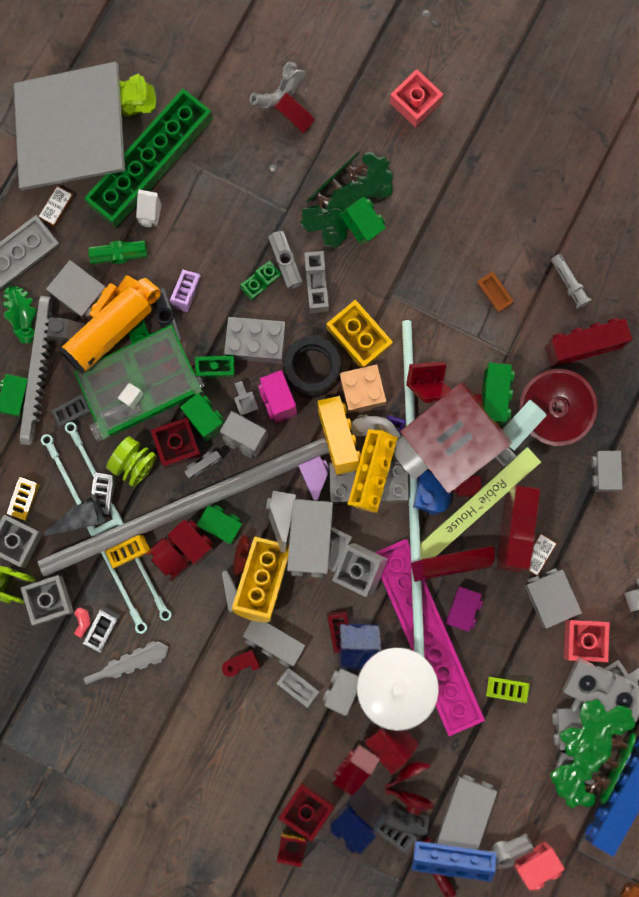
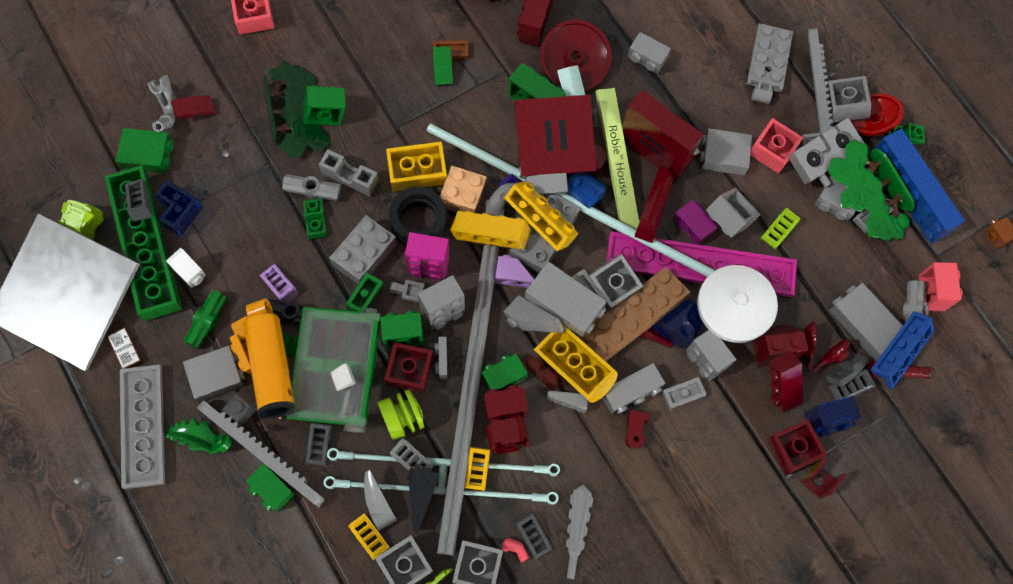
camera: 65 degrees left, 10 degrees down
(51, 488) = (376, 503): none -> light grey piece
(172, 140) = (142, 210): none -> dark grey slope
(199, 167) = (181, 207): none -> clear blue brick
(230, 102) = (144, 149): none -> green brick
(340, 605) = (636, 314): none -> medium nougat plate
(428, 381) = (489, 138): dark red bracket -> none
(472, 295) = (442, 65): none -> green slope
(491, 637) = (732, 212): none -> light grey piece

